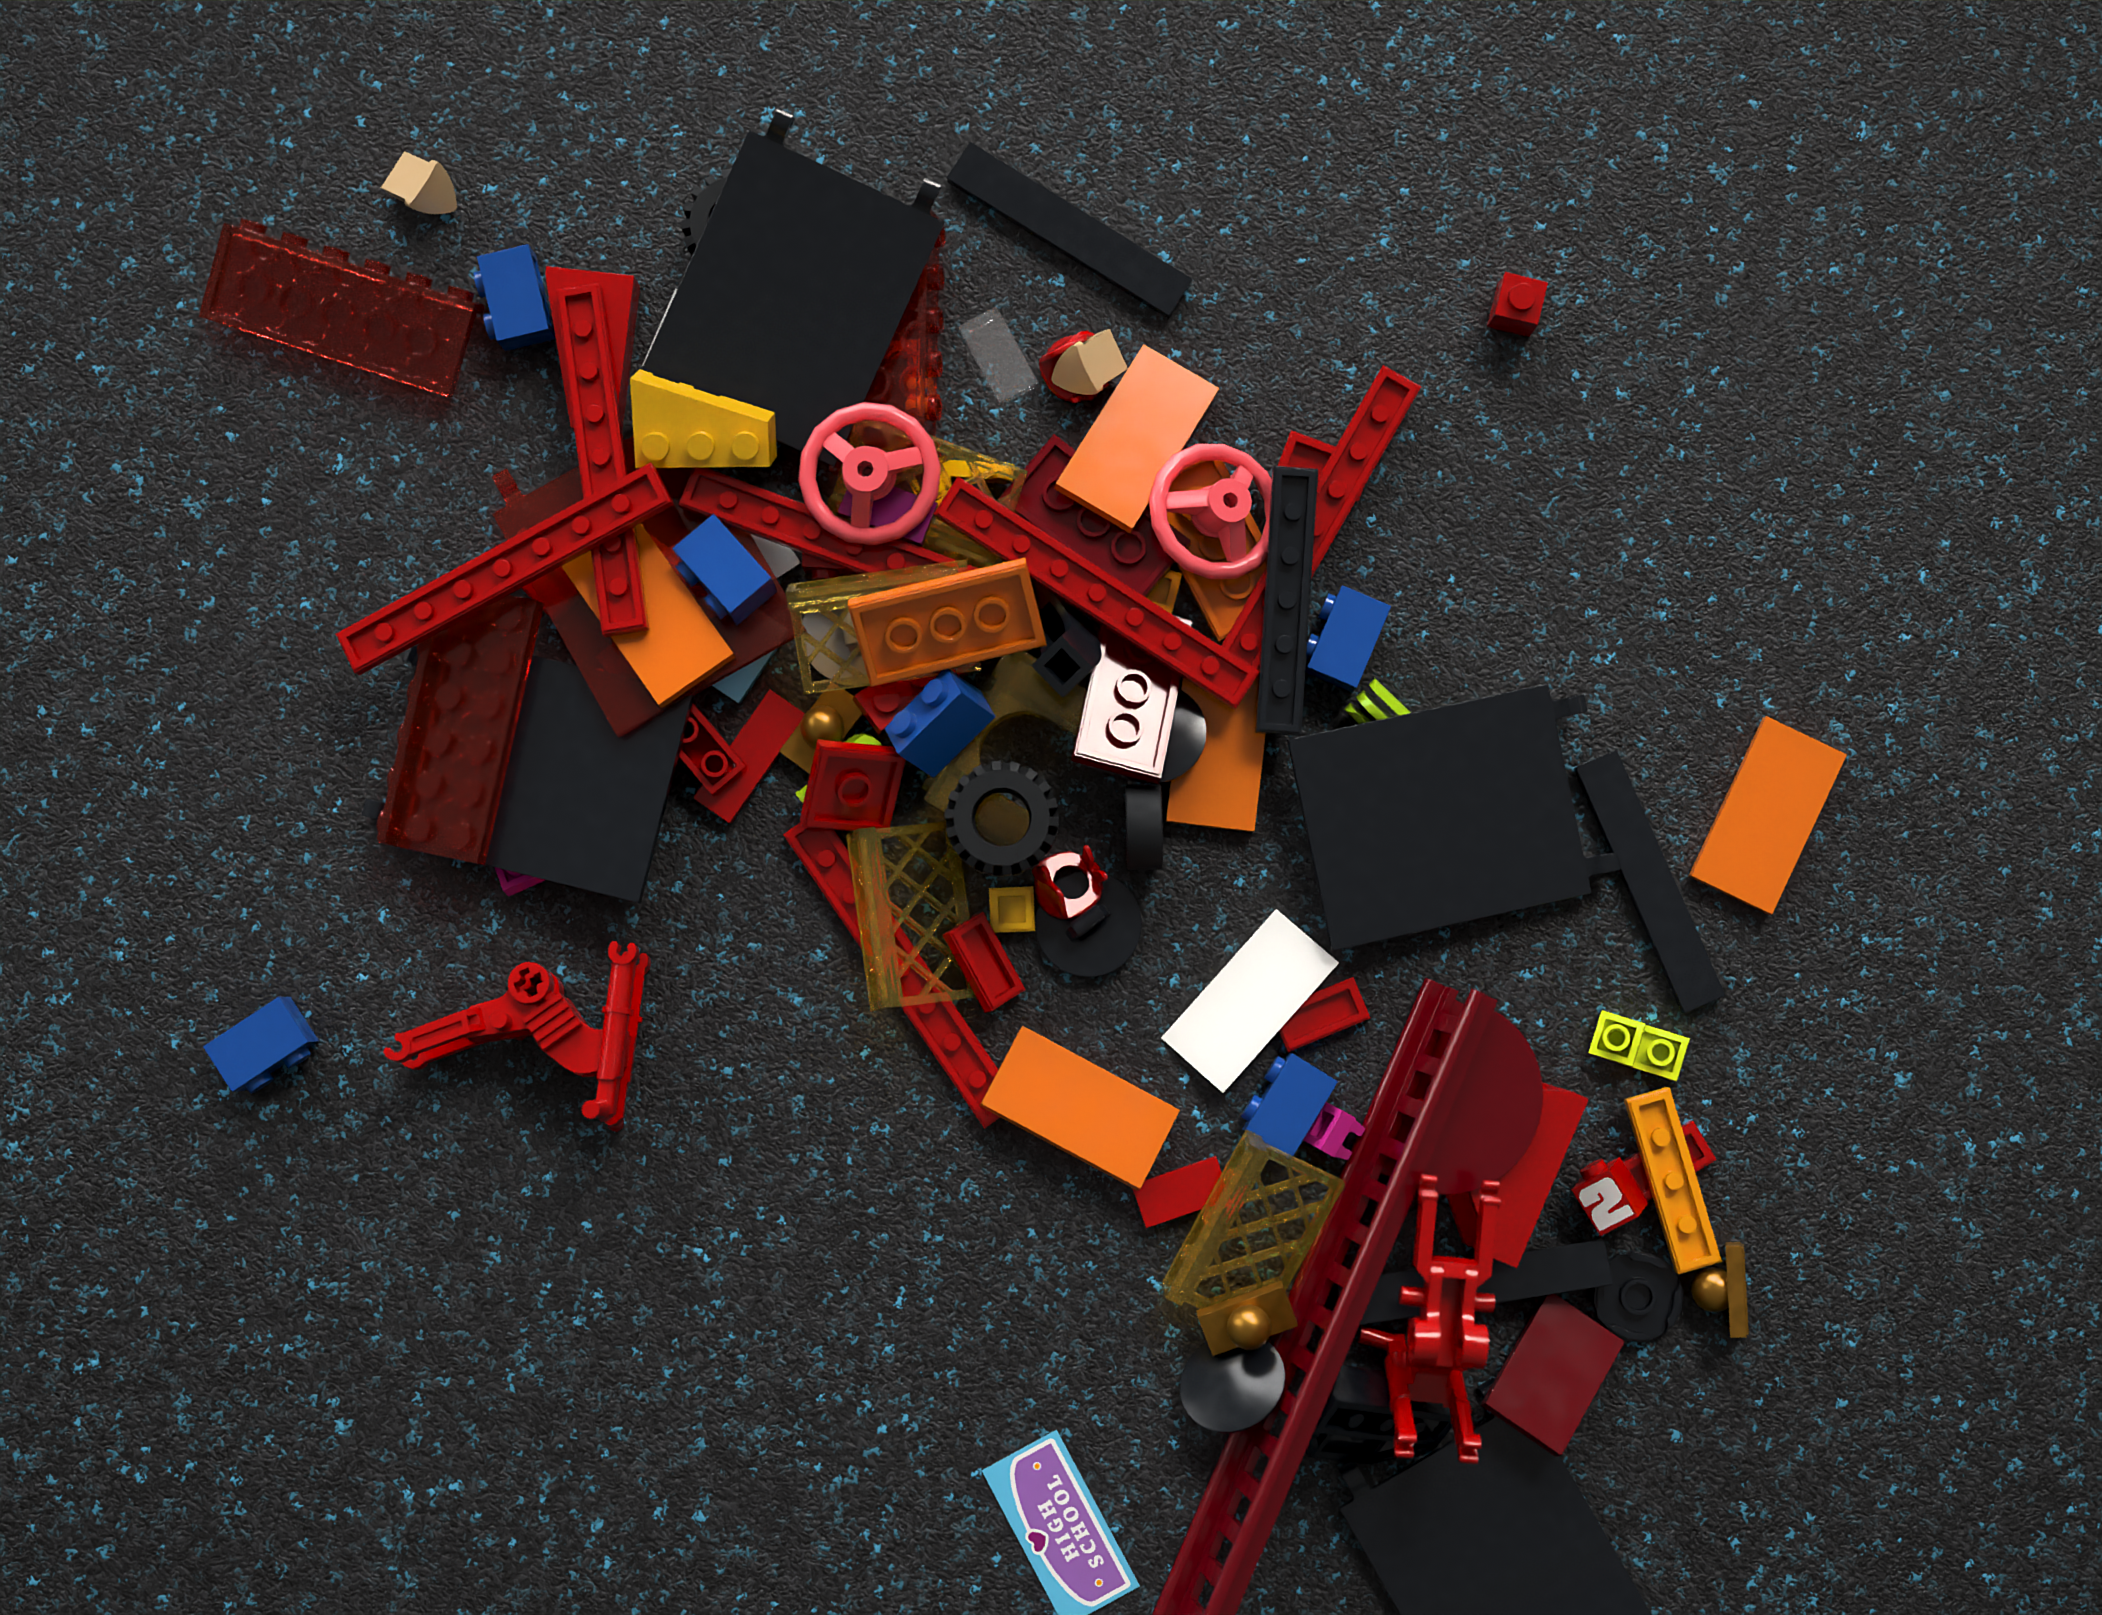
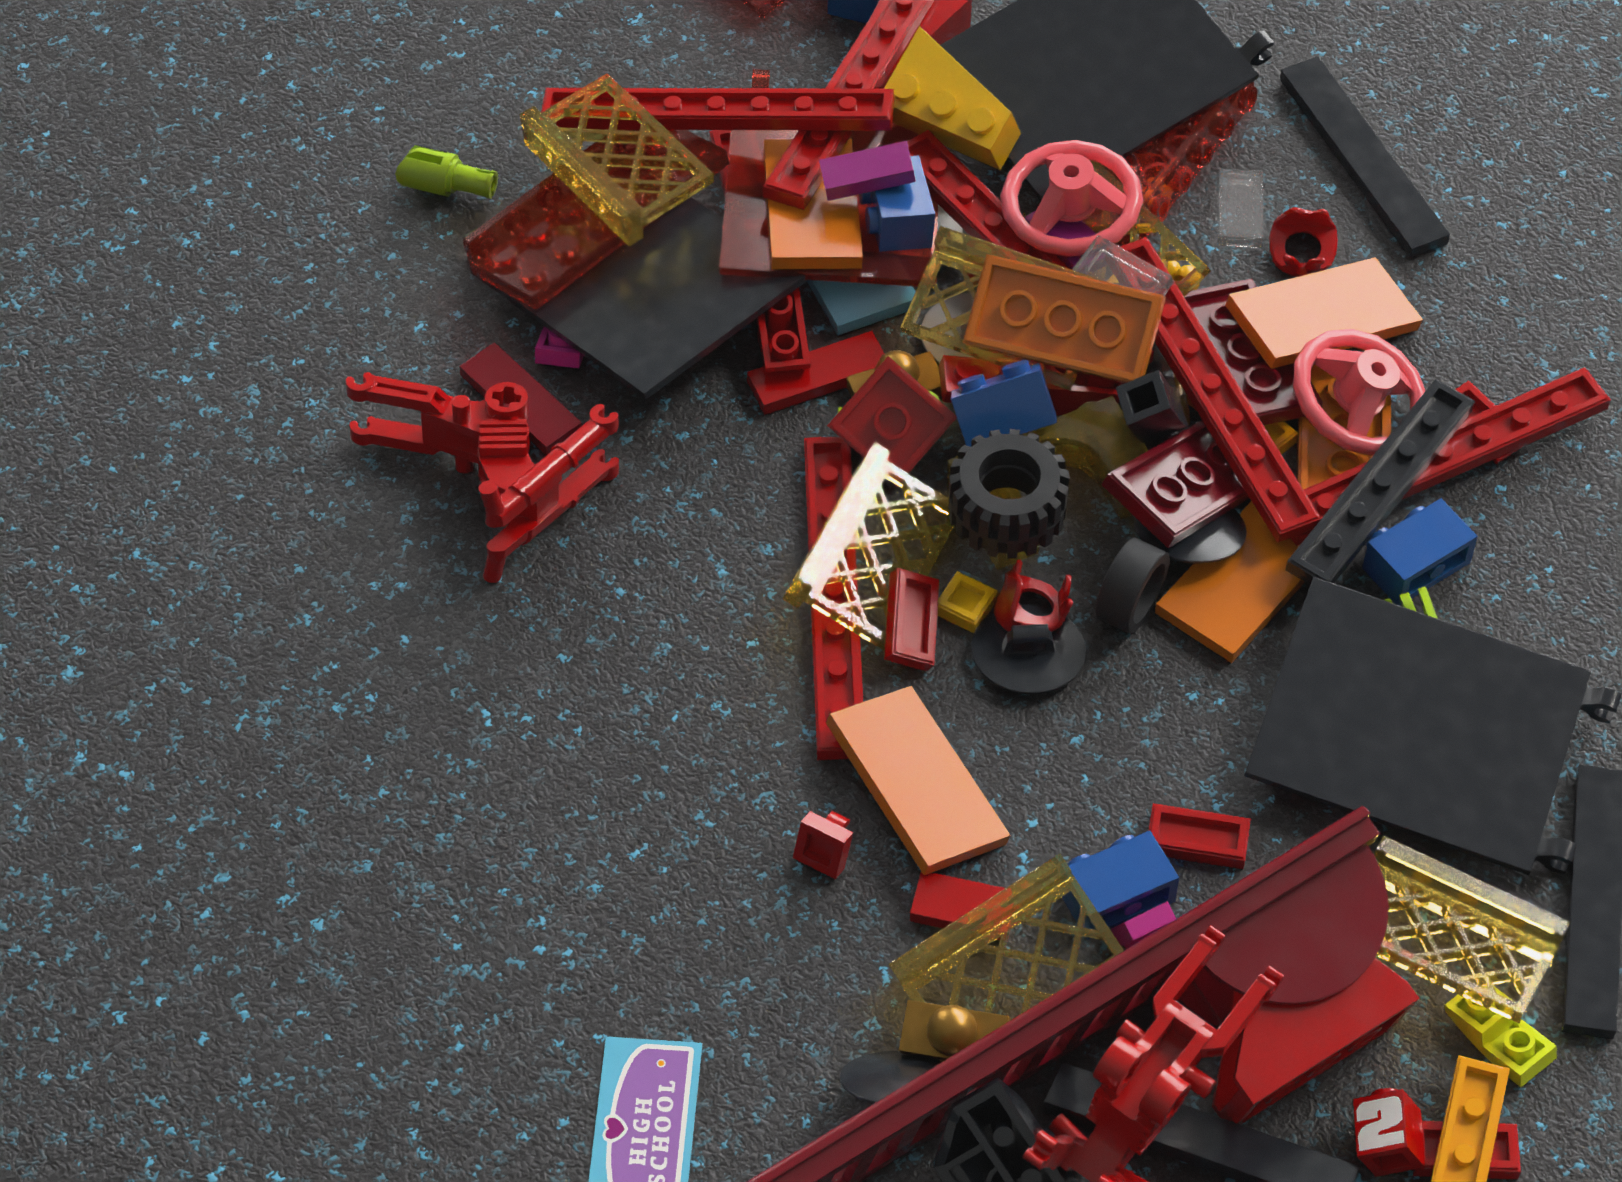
camera: 30 degrees right, 30 degrees down
(262, 1045) = (247, 350): blue brick -> none
(295, 753) = (444, 174): none -> lime arm
(440, 718) = (583, 171): none -> clear yellow fence
(521, 940) = (547, 419): none -> dark red tile
(685, 569) = (867, 170): none -> magenta tile
(965, 537) = (1120, 267): none -> clear tile
(1044, 1211) = (824, 843): none -> red tile
(1089, 364) = (1317, 235): tan tile -> none
(1249, 1000) = (1137, 786): white sticker -> none
(1571, 955) = (1471, 905): none -> clear yellow fence

